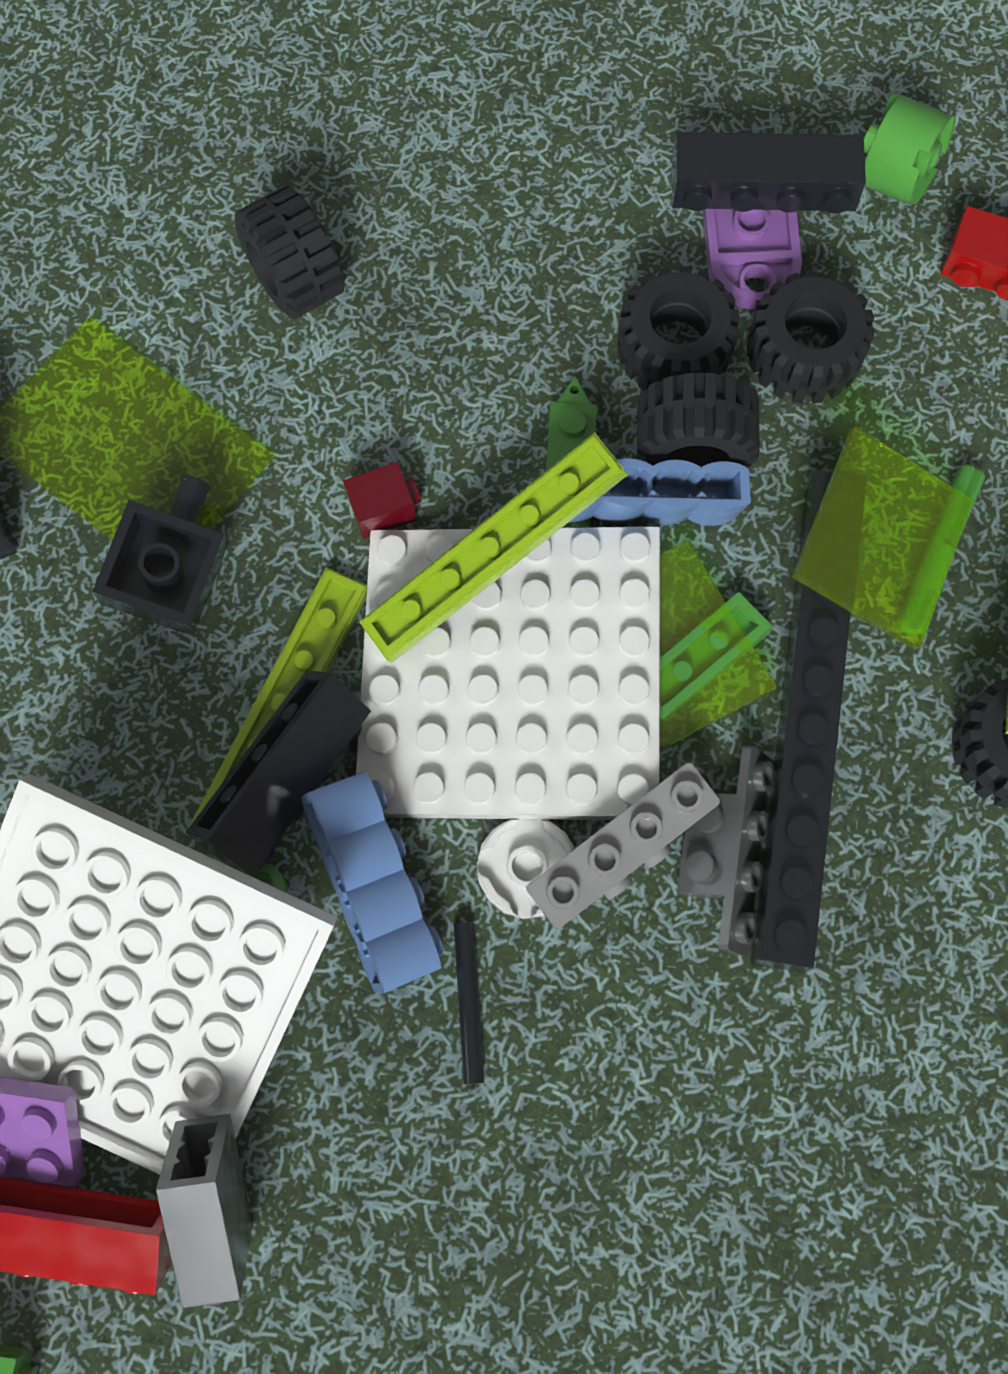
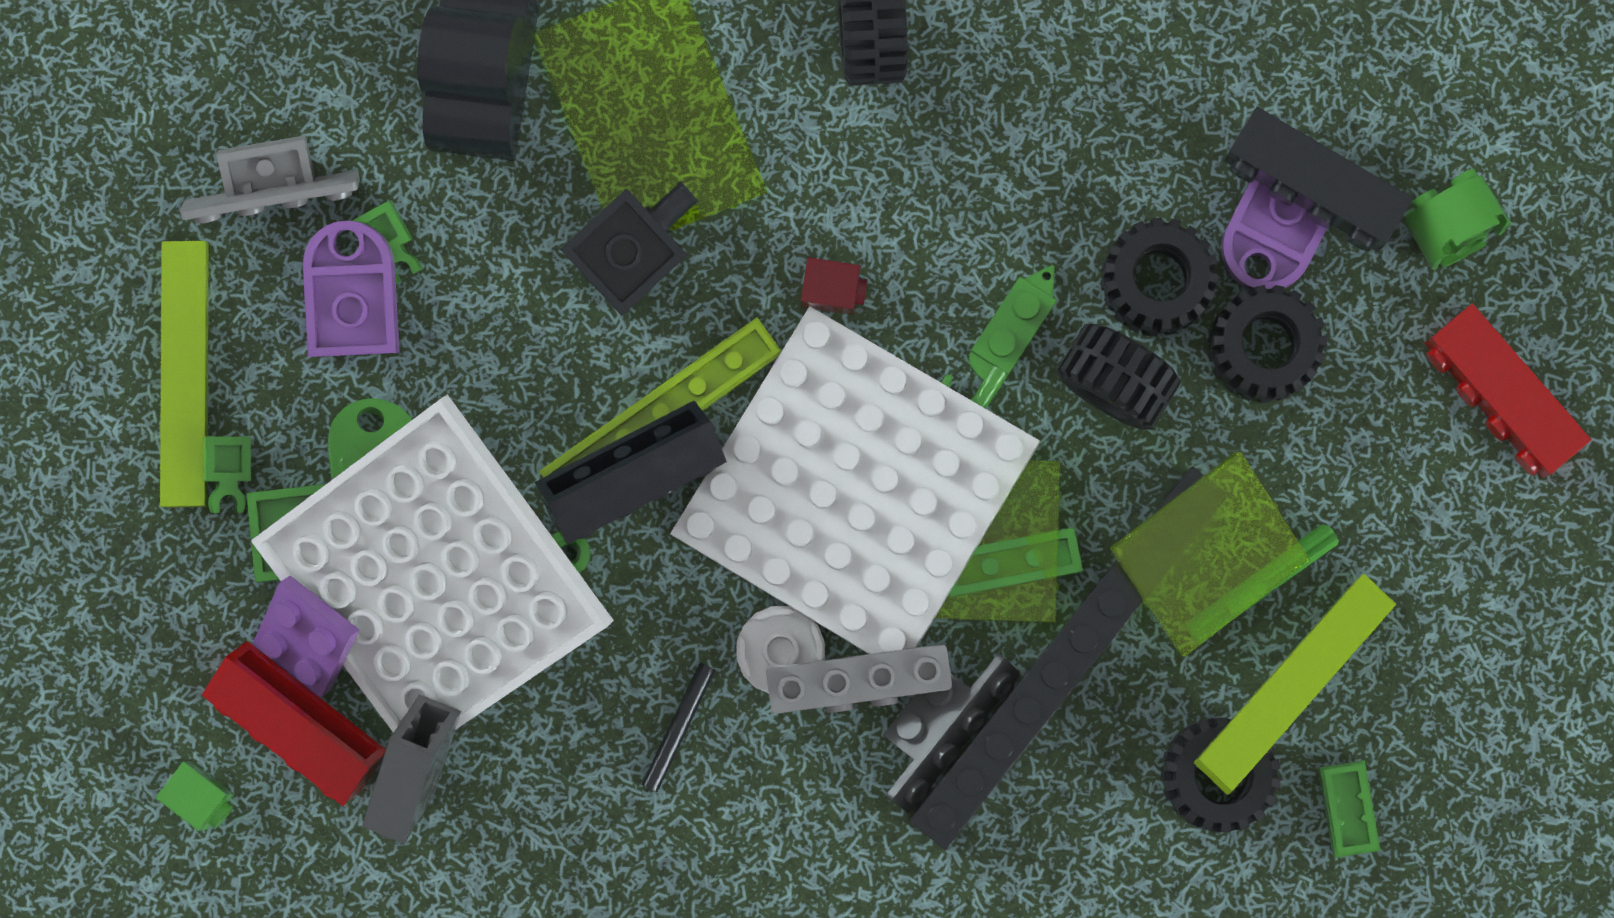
camera: 30 degrees right, 10 degrees up
(371, 882) = (654, 597): medium blue brick -> none
(493, 547) = (892, 390): lime tile -> none
(674, 493) = (1055, 412): medium blue brick -> none

